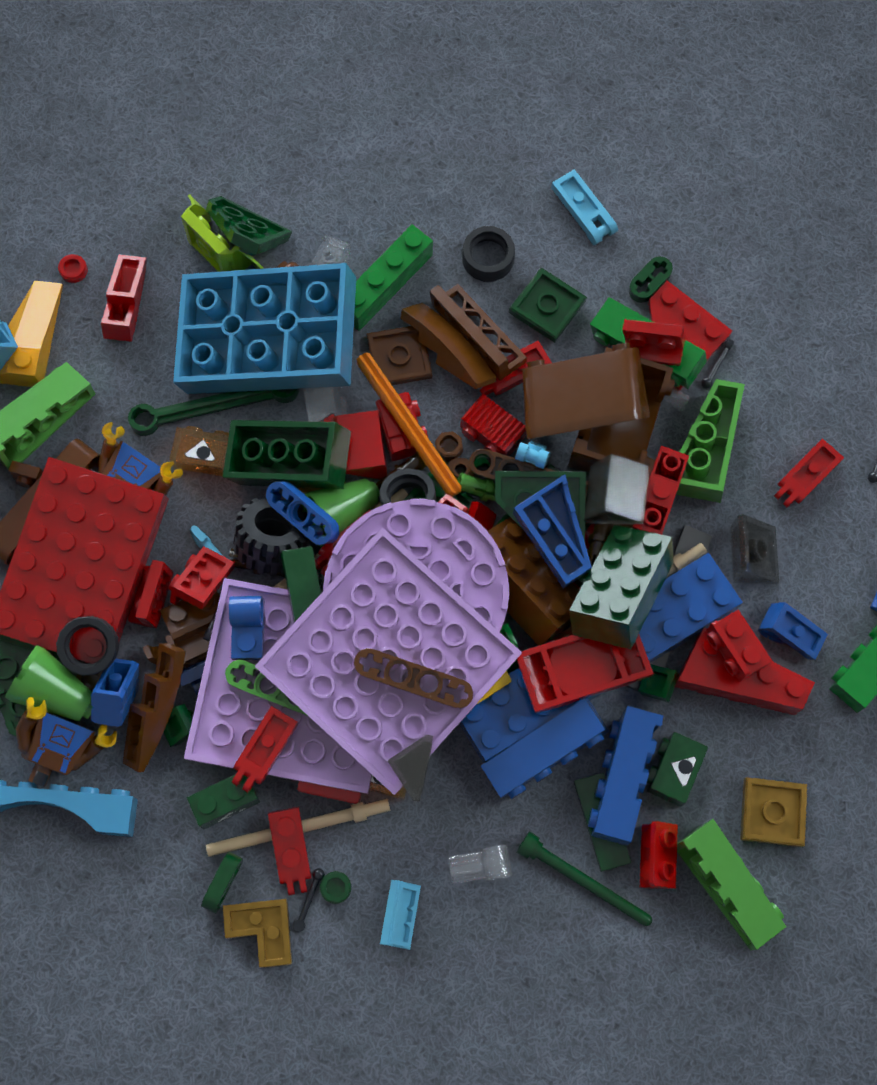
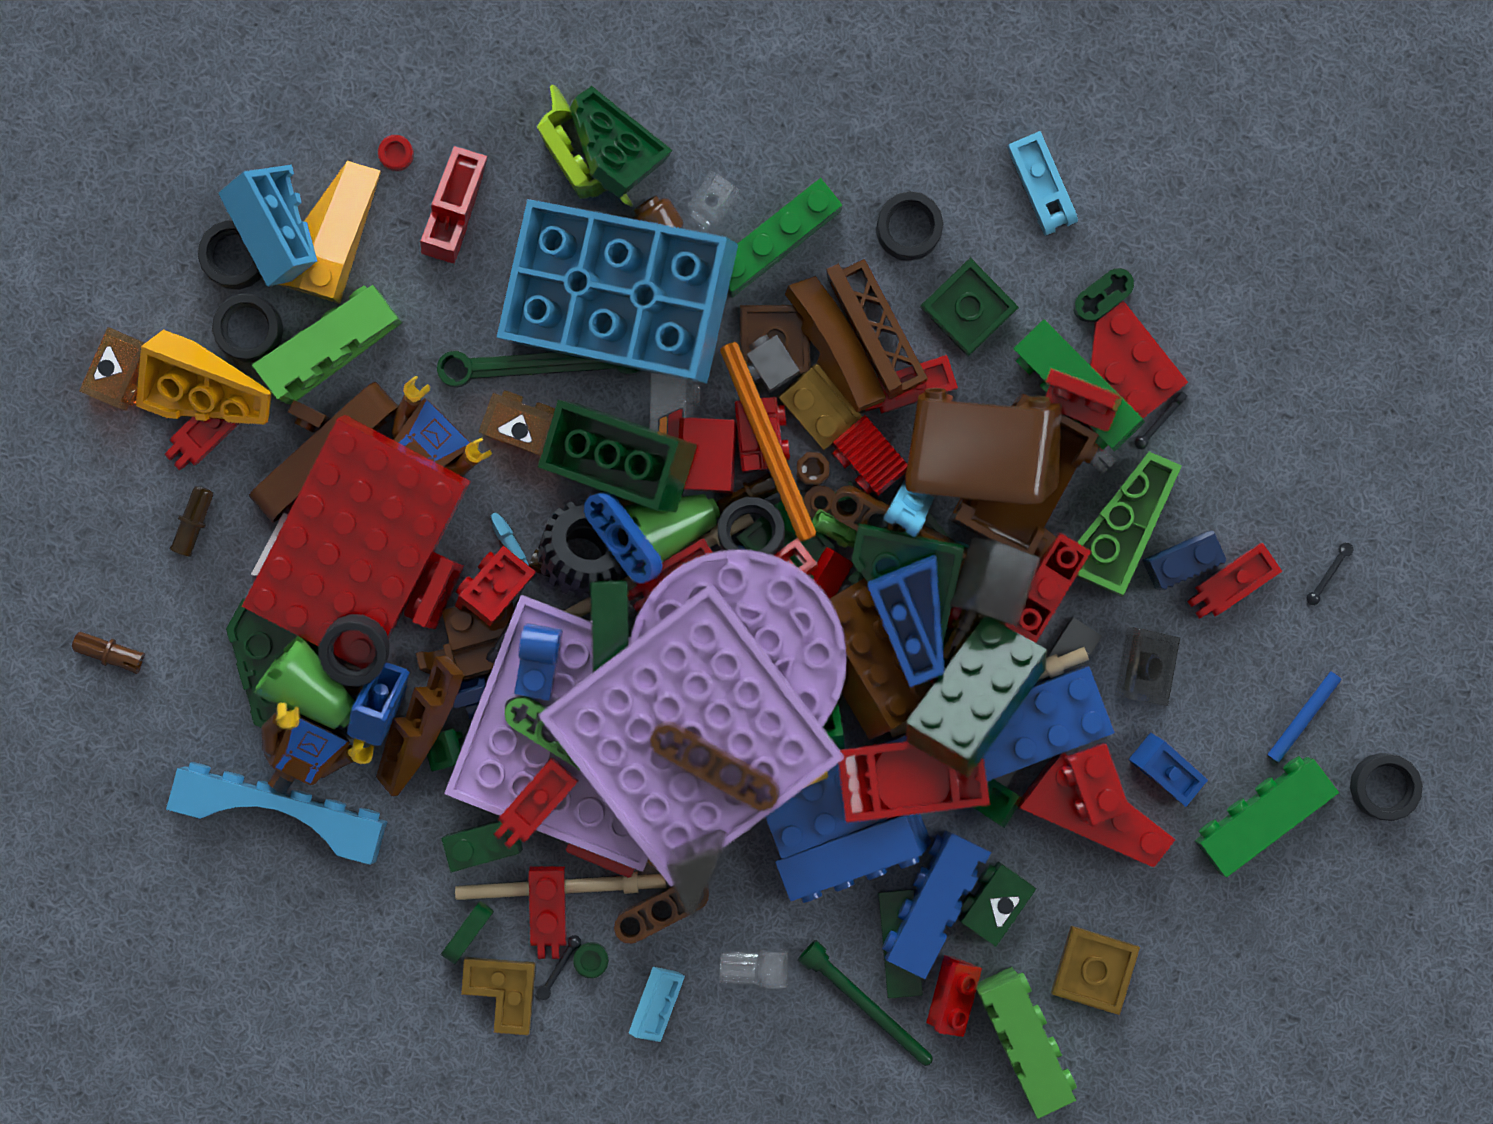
camera: 15 degrees right, 15 degrees up
(383, 843) = (648, 920): none -> reddish brown beam
(400, 367) = (770, 363): none -> flat silver brick
(444, 397) = (819, 406): none -> pearl gold plate
(764, 462) = (1184, 560): none -> dark blue brick

